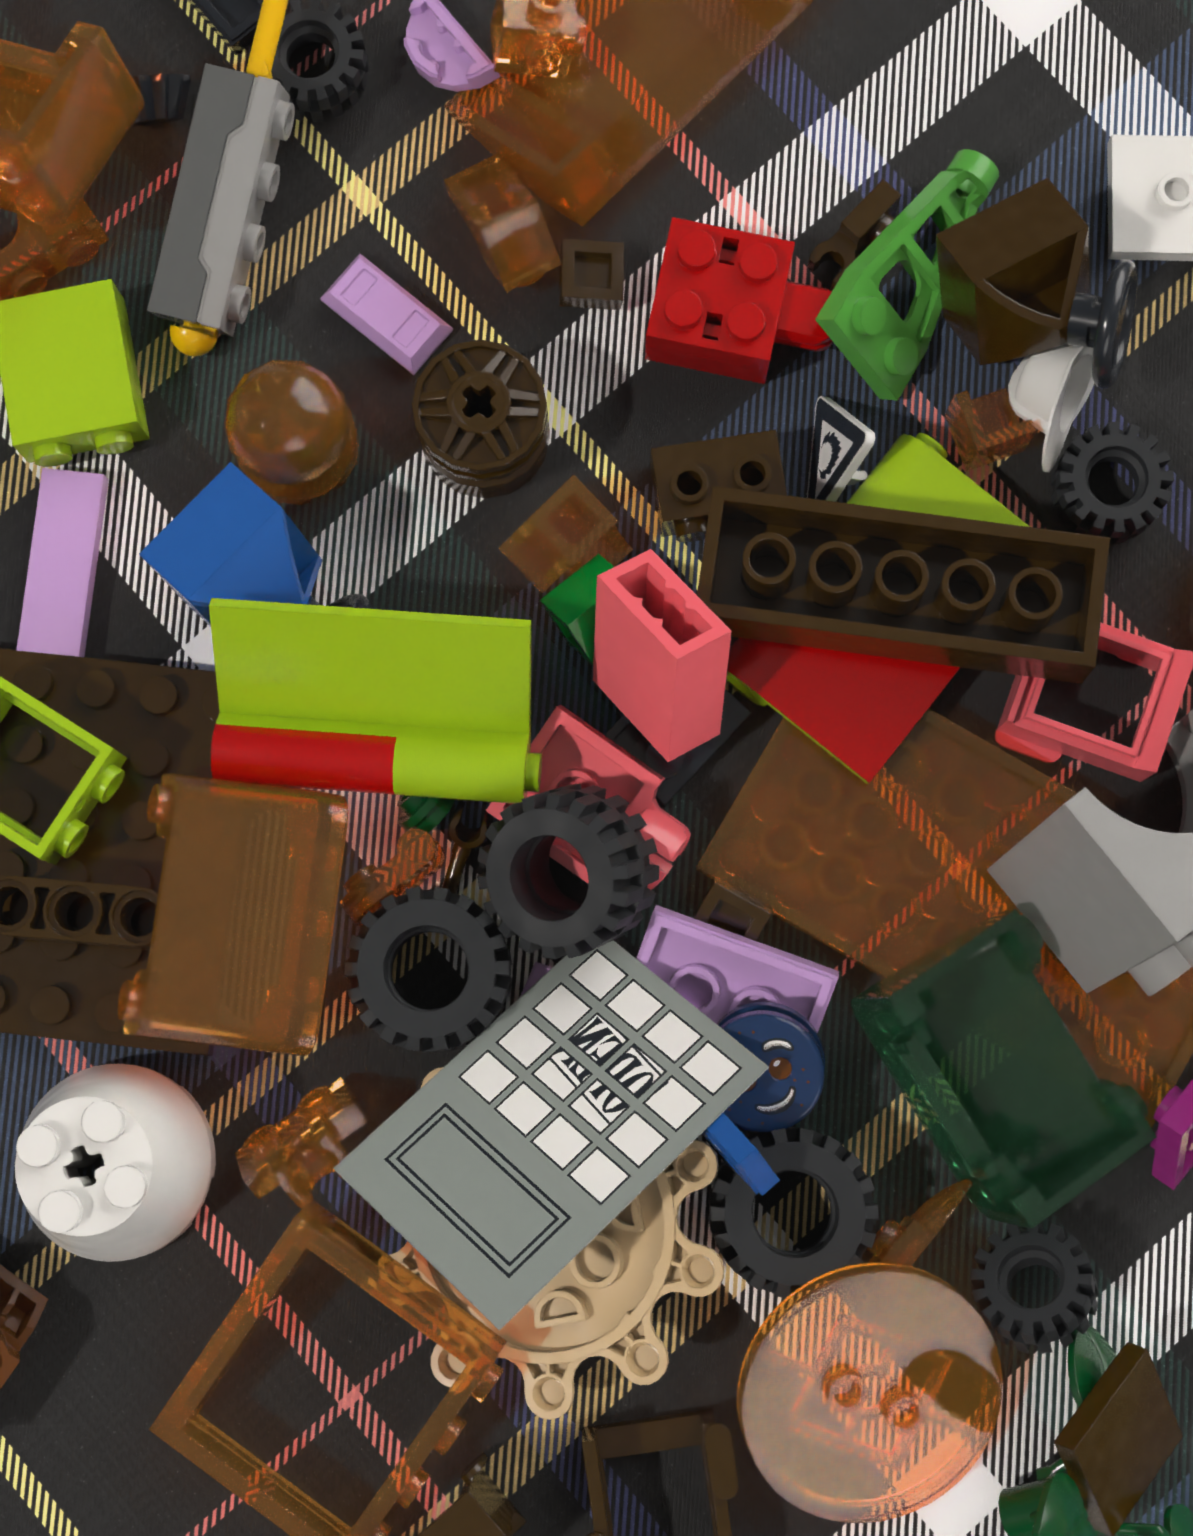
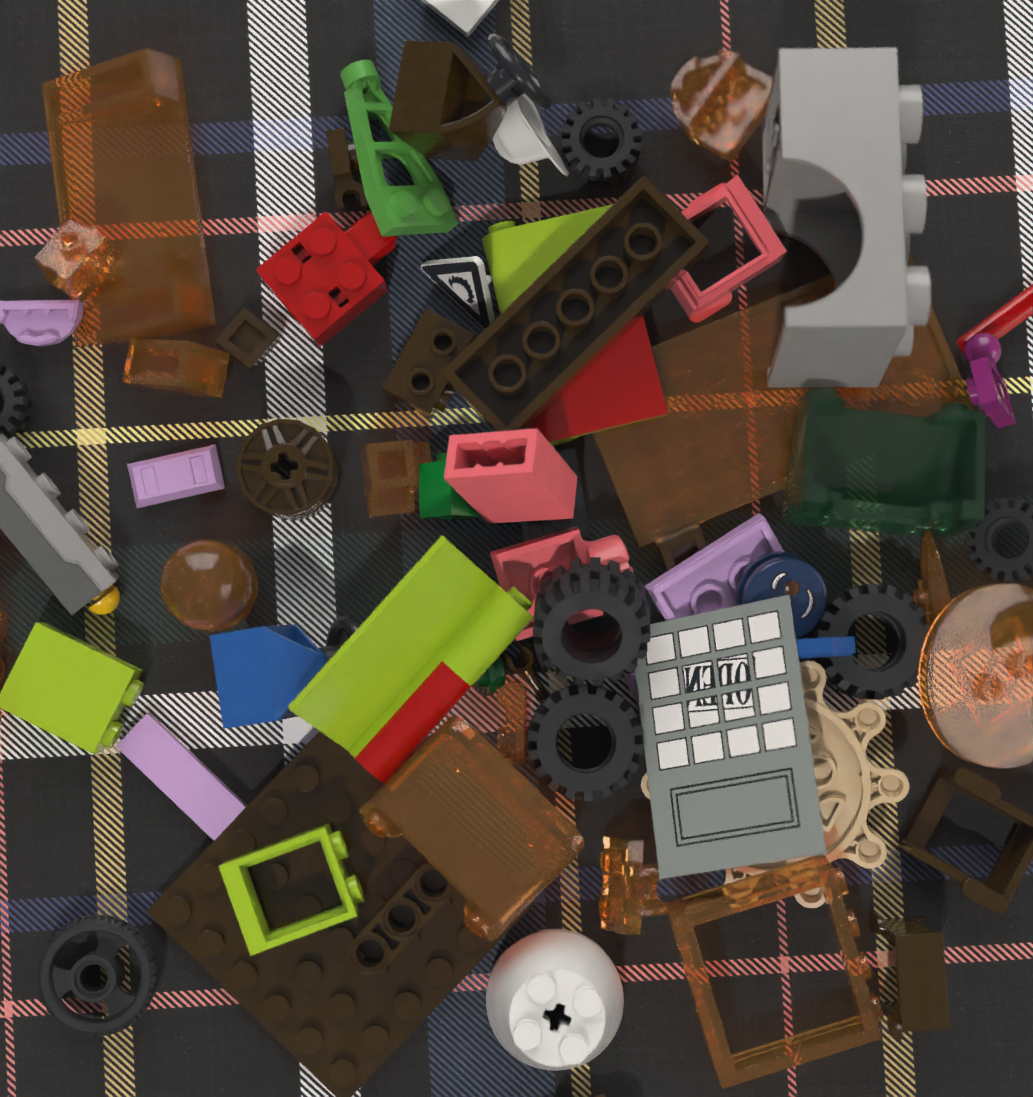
camera: 60 degrees left, 5 degrees up
(986, 428) = (514, 186): clear orange panel -> none

